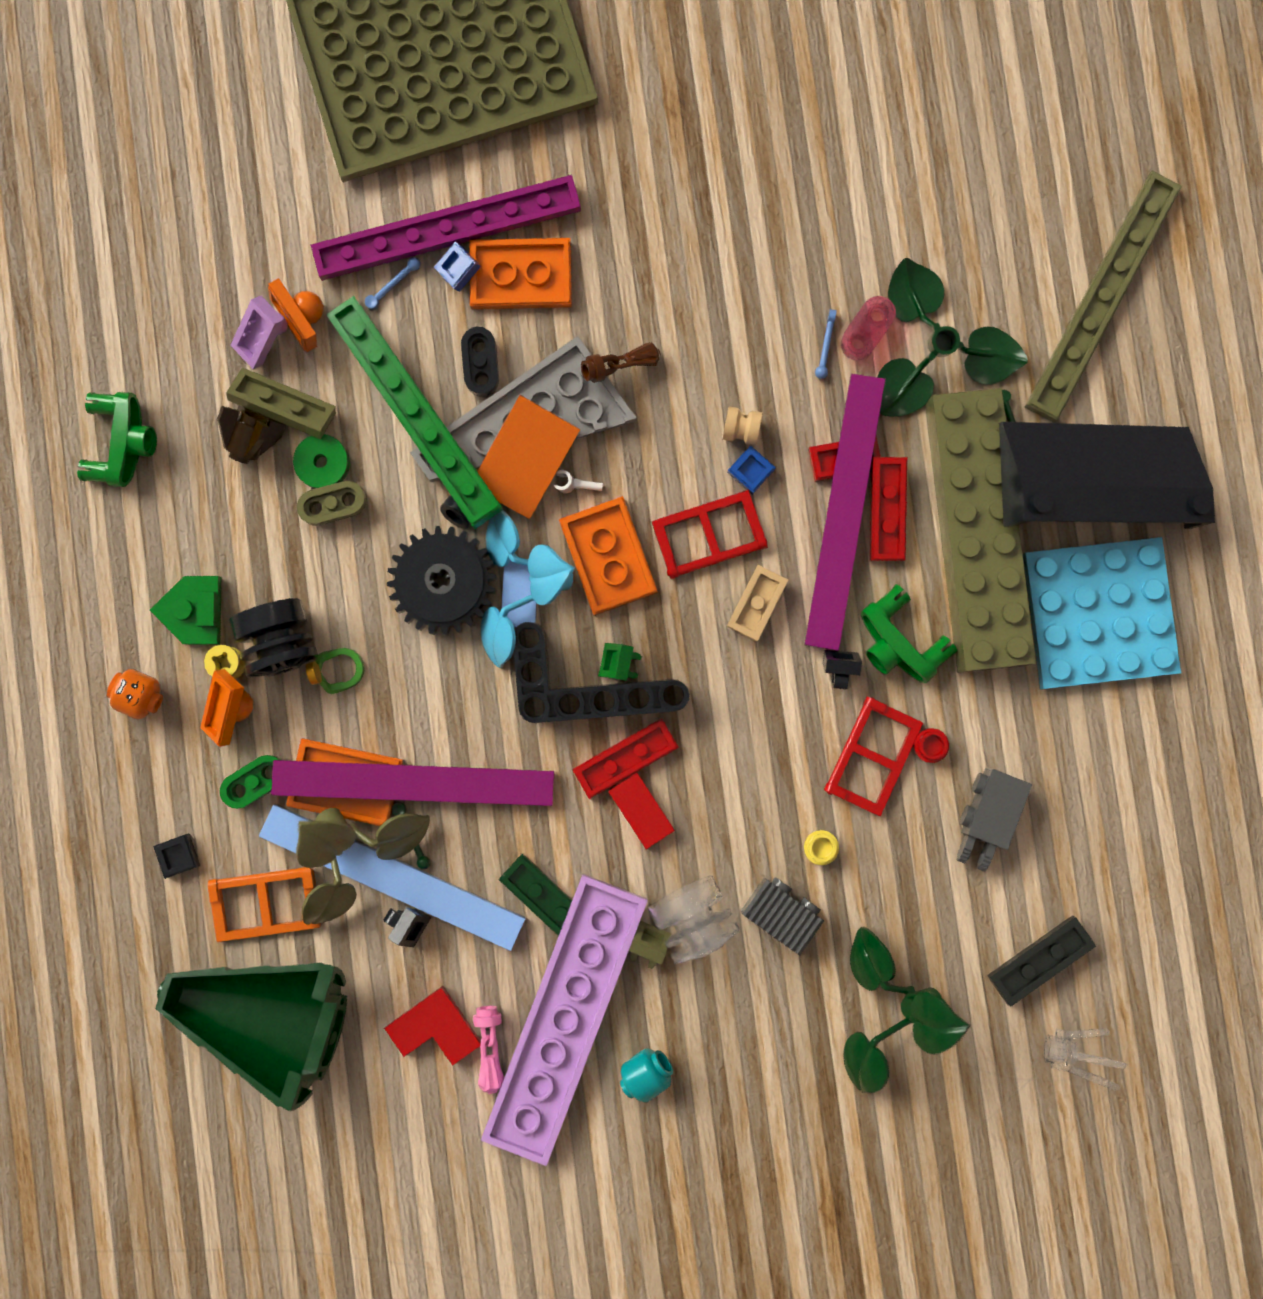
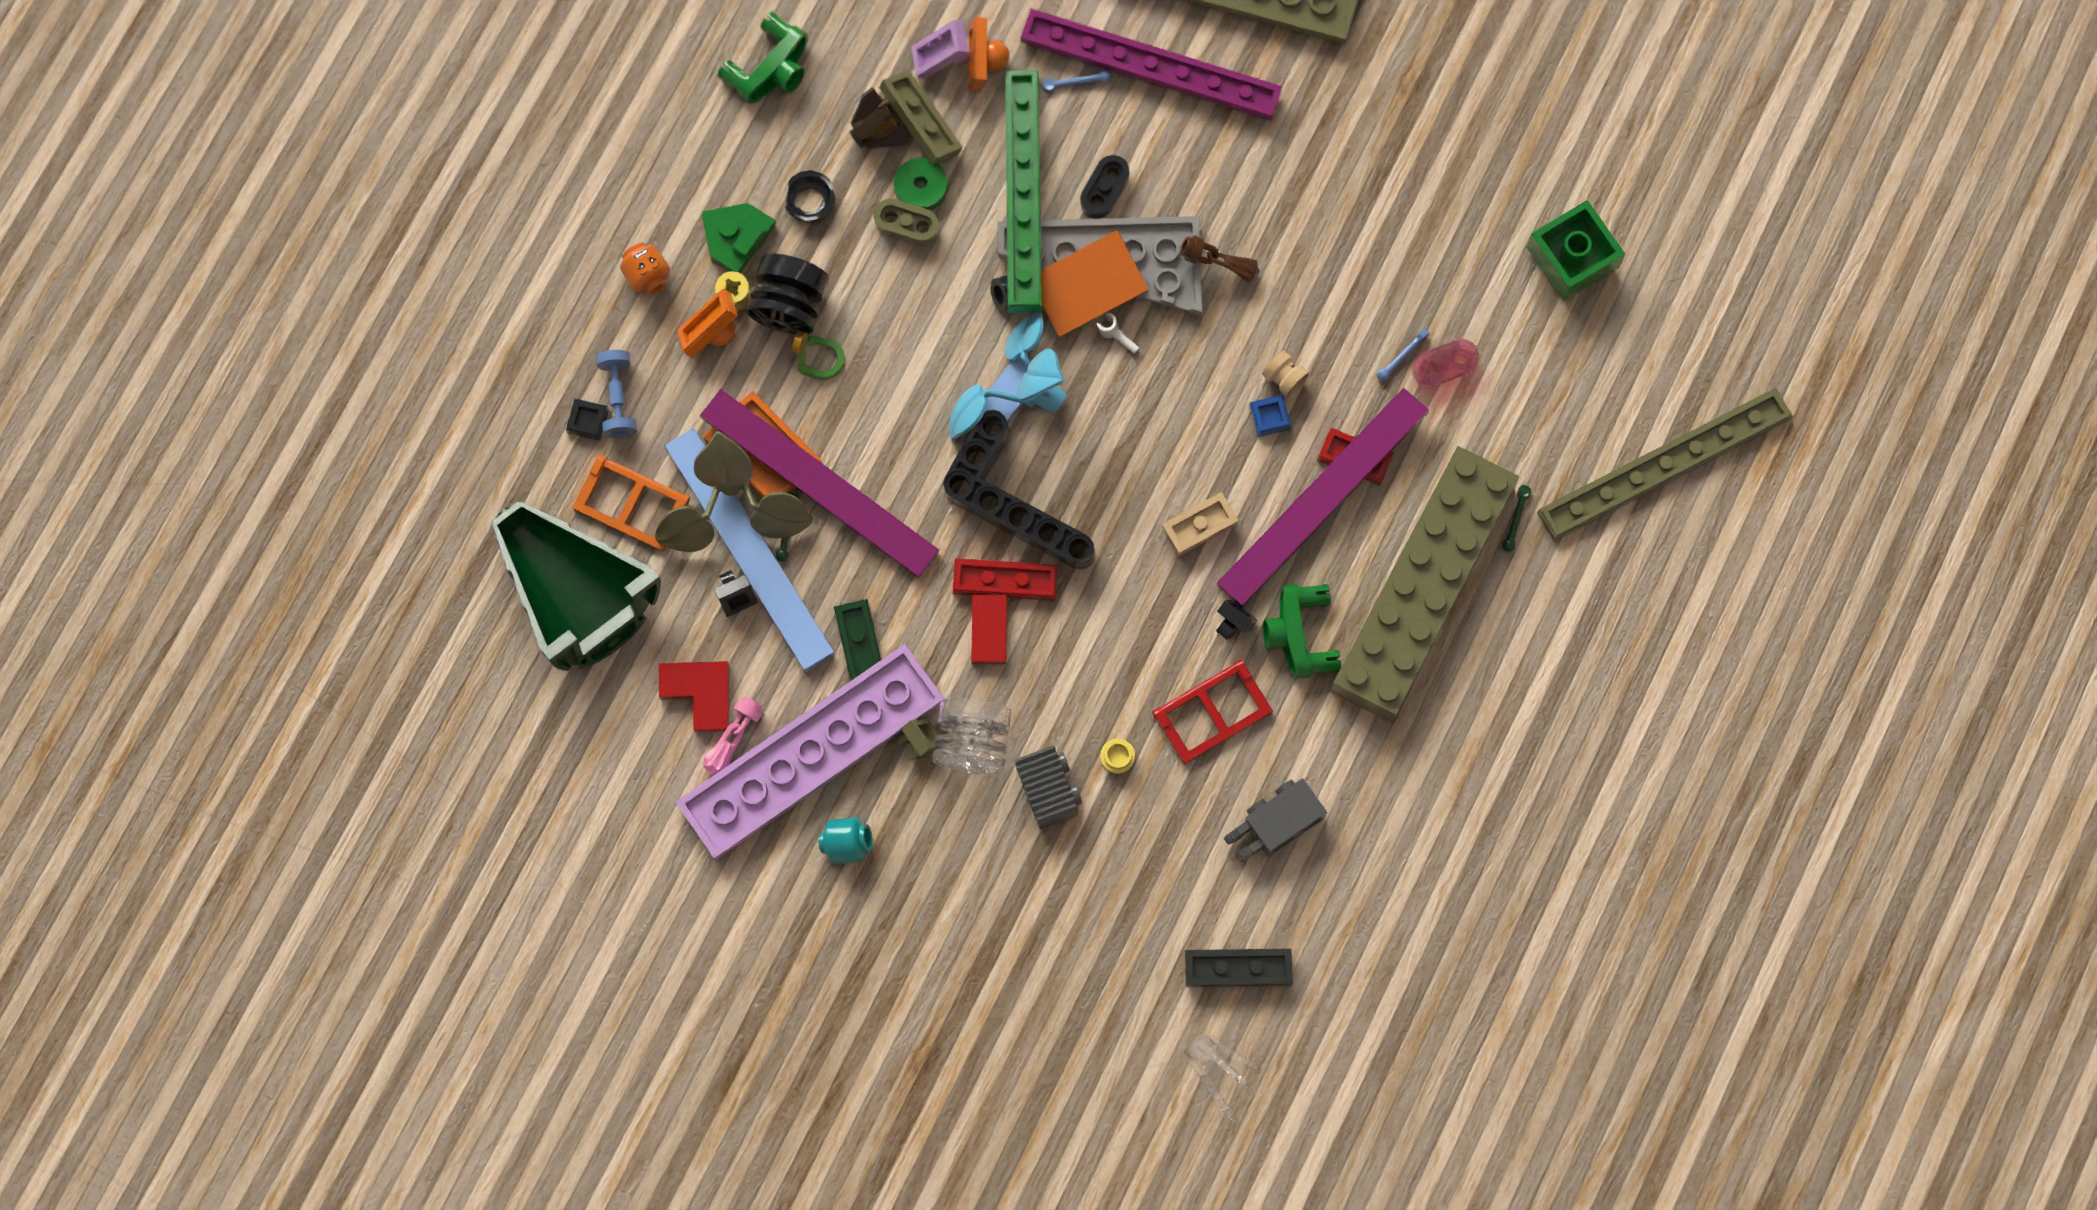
camera: 30 degrees right, 10 degrees down
(163, 792) = (613, 361): none -> medium blue wheel
(221, 522) = (810, 180): none -> black piece
(252, 778) = (691, 398): green plate -> none
(432, 558) = (941, 358): black gear -> none
(457, 266) = (1138, 100): tile -> none
(521, 273) = (1187, 139): orange tile -> none
(608, 556) = (1103, 409): orange tile -> none
(617, 661) = (1051, 495): green tile -> none
(701, 511) = (1205, 423): red window -> none
(888, 508) = (1362, 518): red tile -> none
(914, 158) = (1575, 250): none -> green brick
(931, 745) = (1267, 733): red plate -> none
(934, 1027) = (1108, 930): dark green plant -> none
(991, 351) = (1502, 360): dark green plant -> none
(1101, 613) = (1485, 720): medium azure plate -> none
(1103, 474) = (1559, 599): black slope -> none

